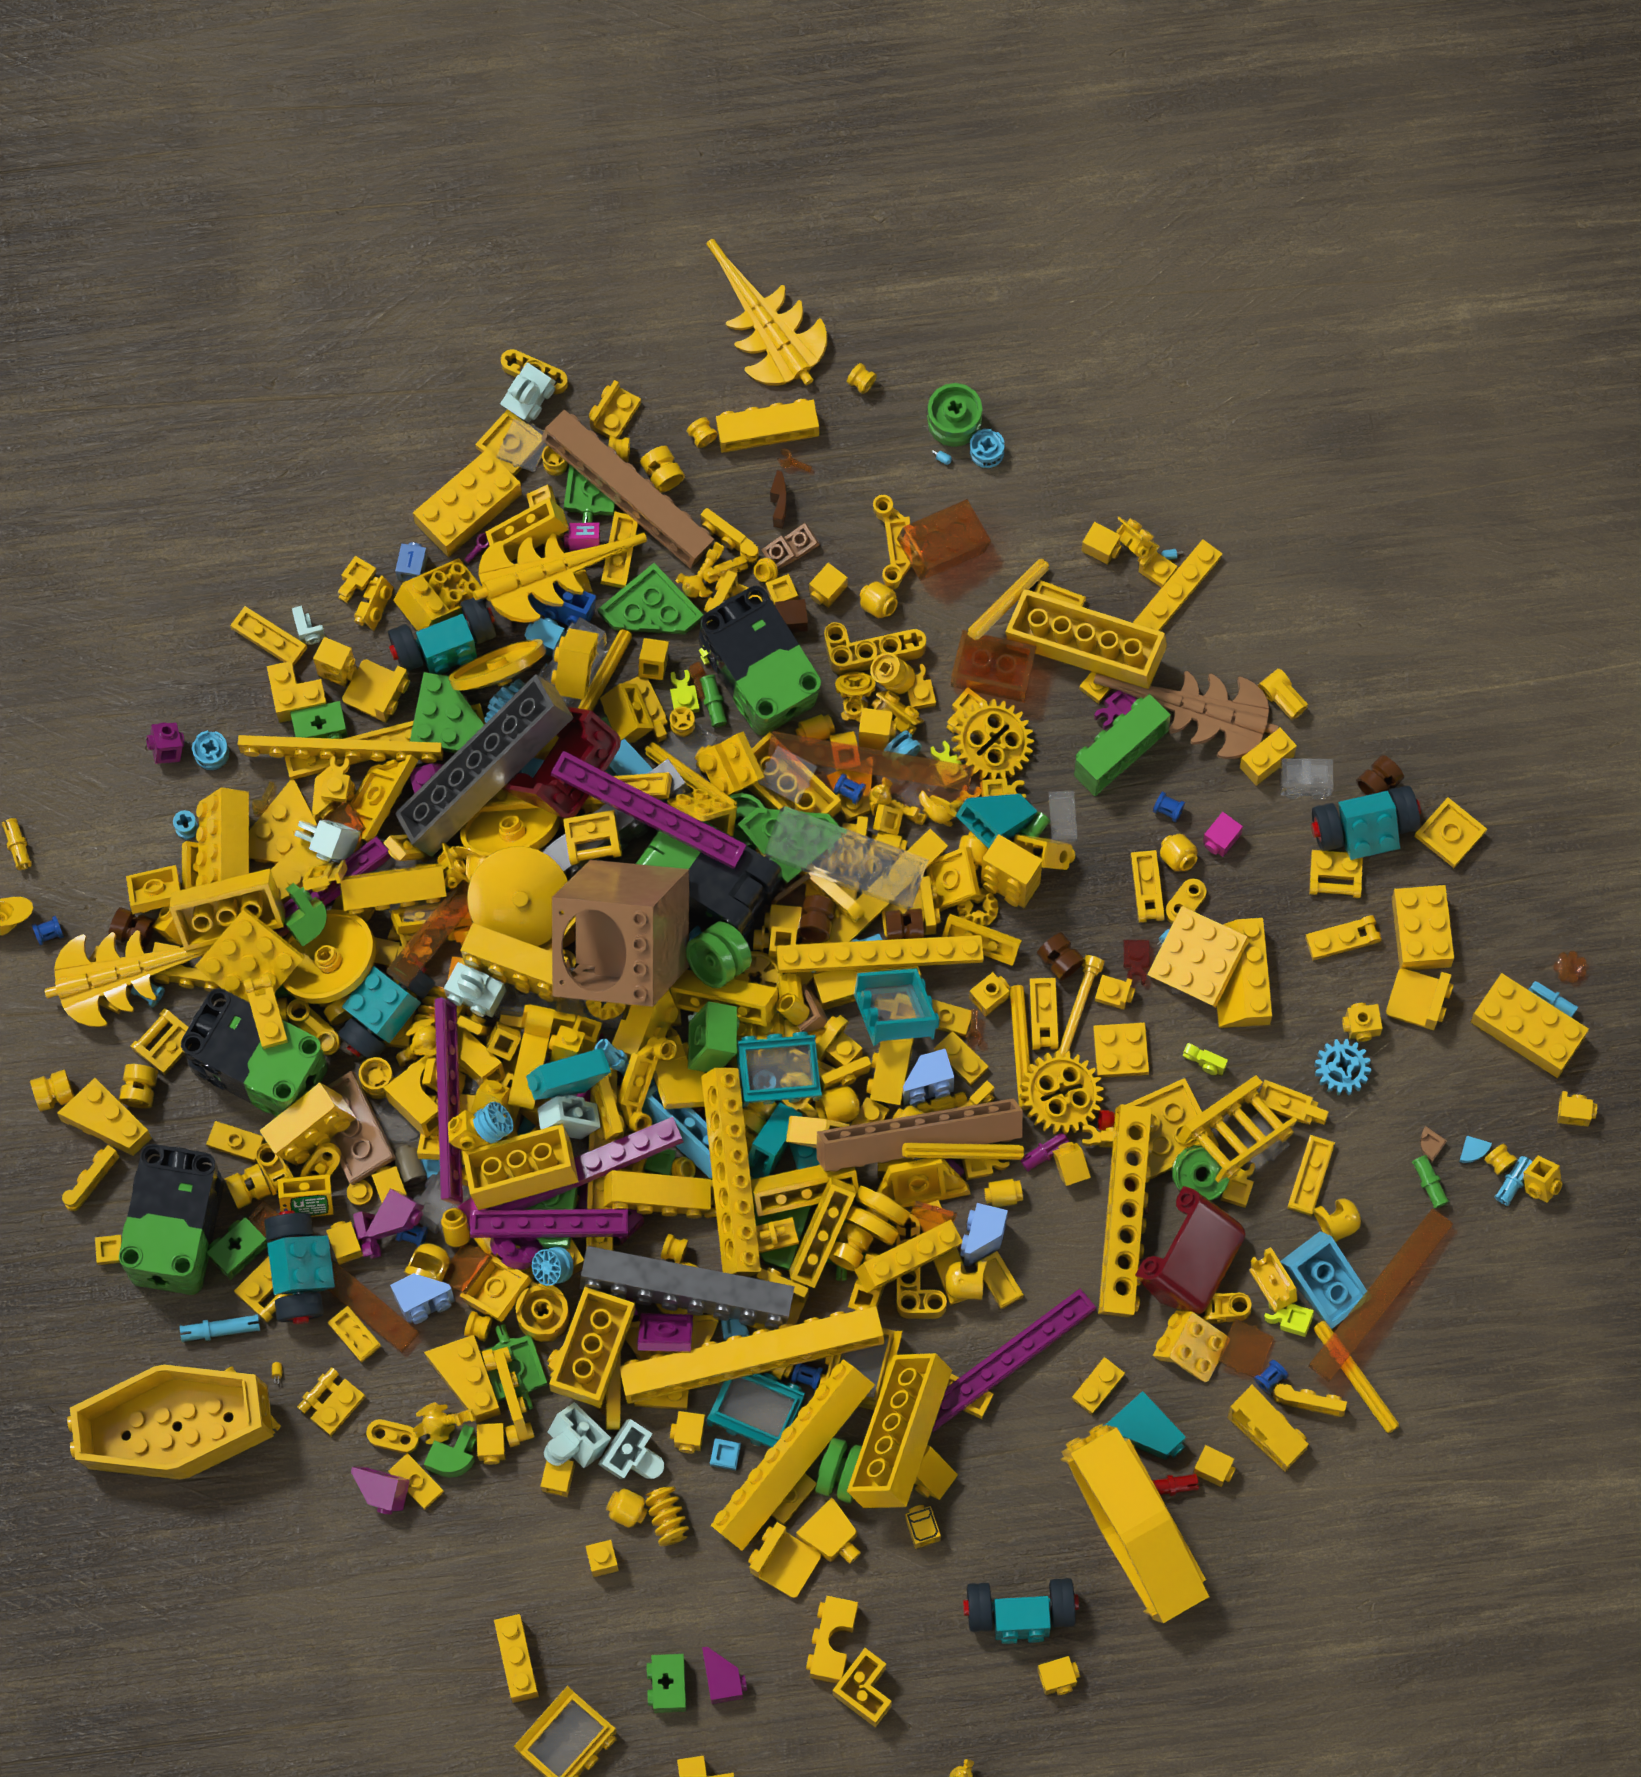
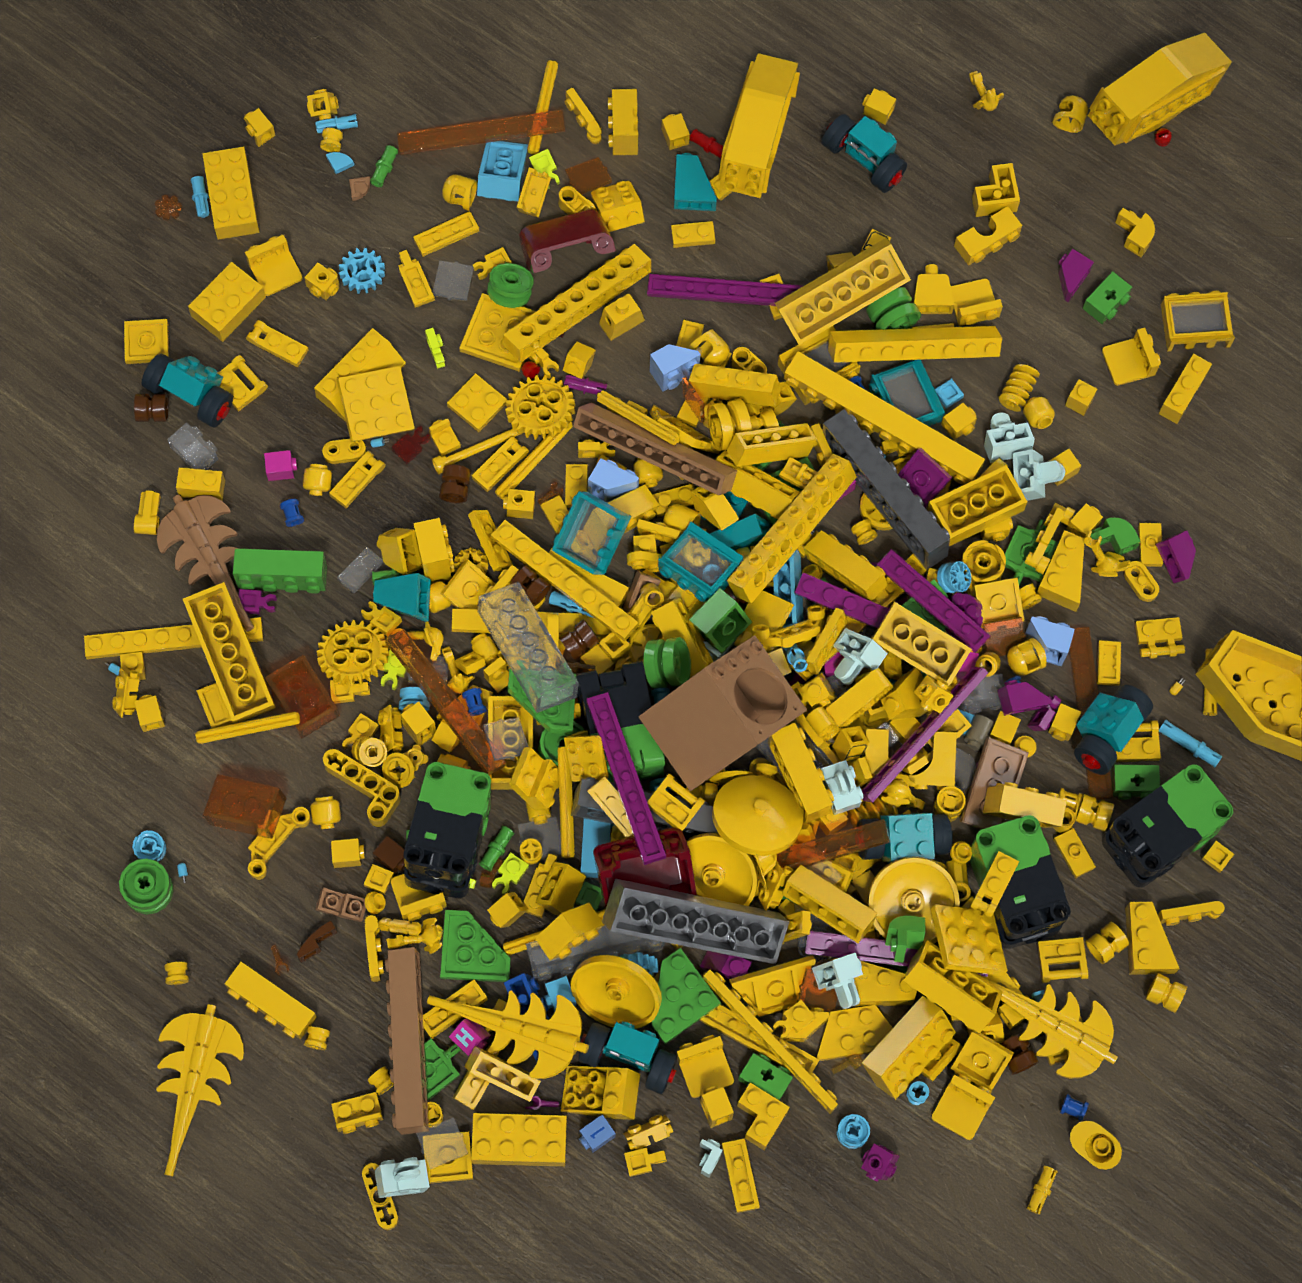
camera: 140 degrees left, 0 degrees up
(139, 847) = (962, 1107): none -> yellow bracket
(306, 1195) = (1064, 769): yellow brick -> none
(320, 876) = (869, 947): yellow plate -> none
(320, 1162) = (1036, 779): yellow plate -> none
(491, 1123) = (916, 679): medium azure wheel -> none
(568, 1075) = (839, 663): teal slope -> none
(592, 1641) = (1132, 358): none -> yellow bracket
(660, 466) = (369, 1036): yellow wheel -> none
(1003, 1193) = (635, 383): yellow brick -> none
(1076, 1242) = (622, 315): none -> yellow torso
(1231, 1105) = (471, 302): yellow fence -> none
(1279, 1374) = (591, 147): blue bush -> none

